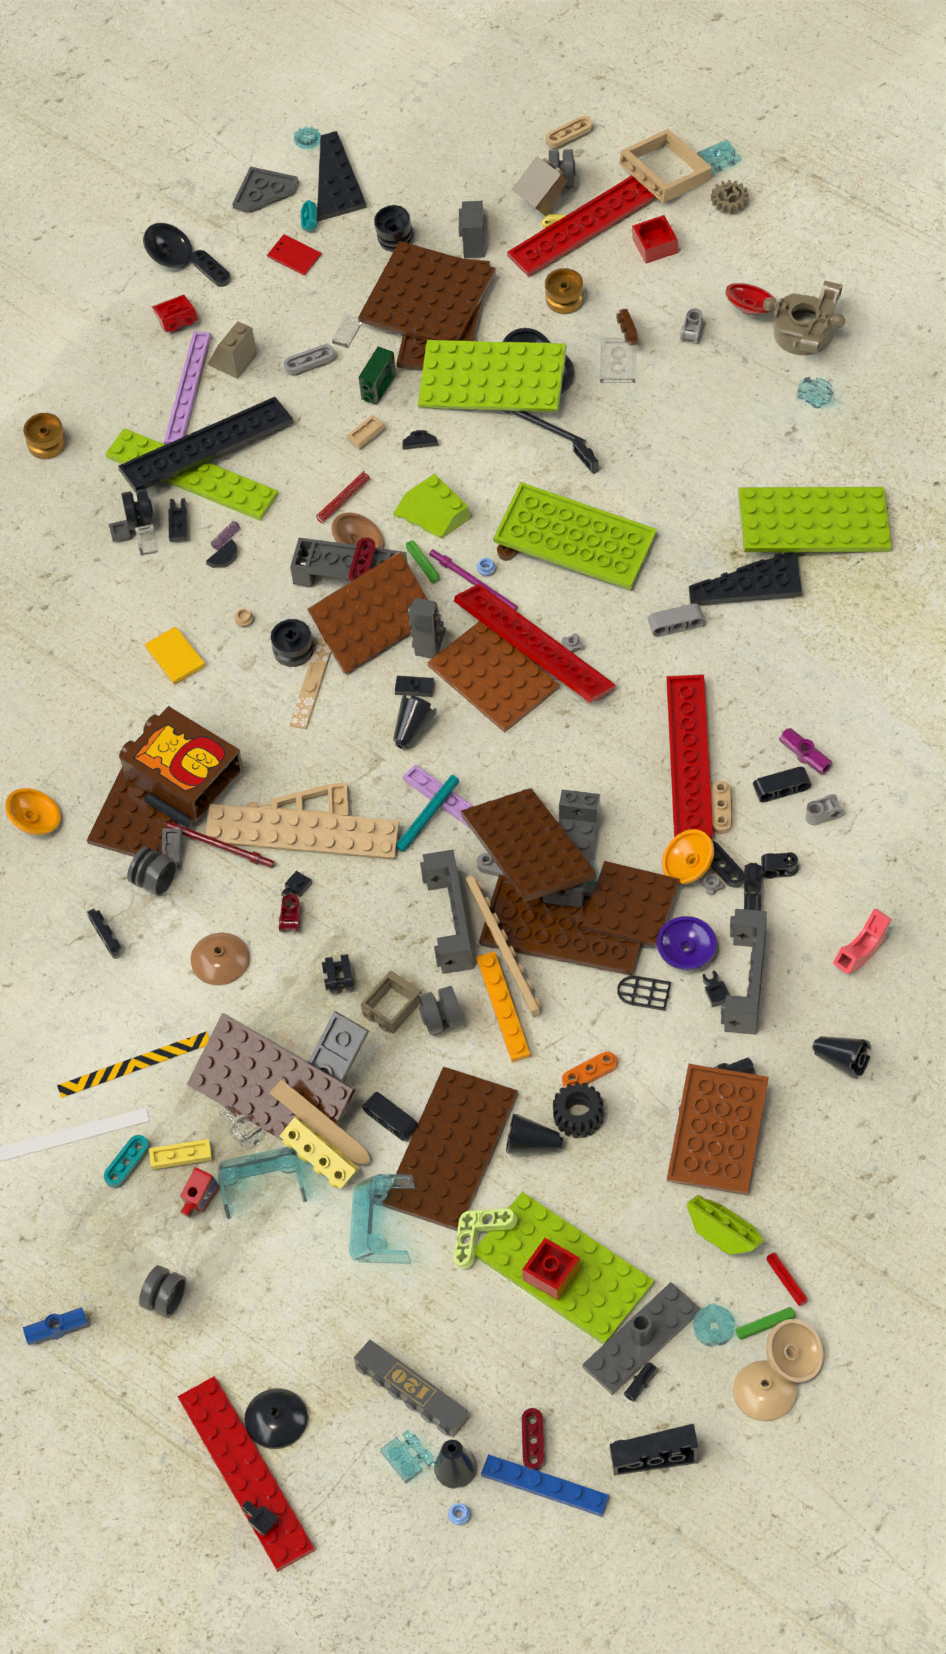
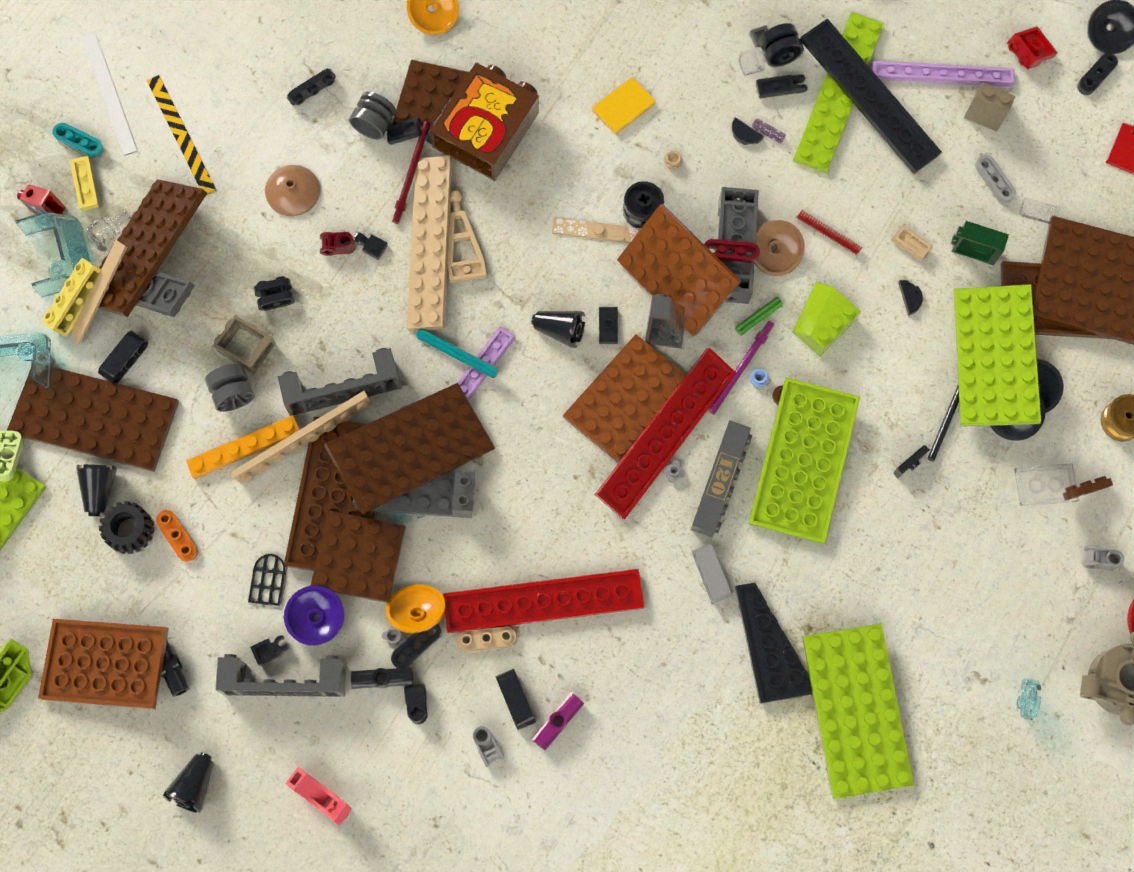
camera: 75 degrees right, 15 degrees up
(584, 604) = (720, 479): none -> dark grey brick

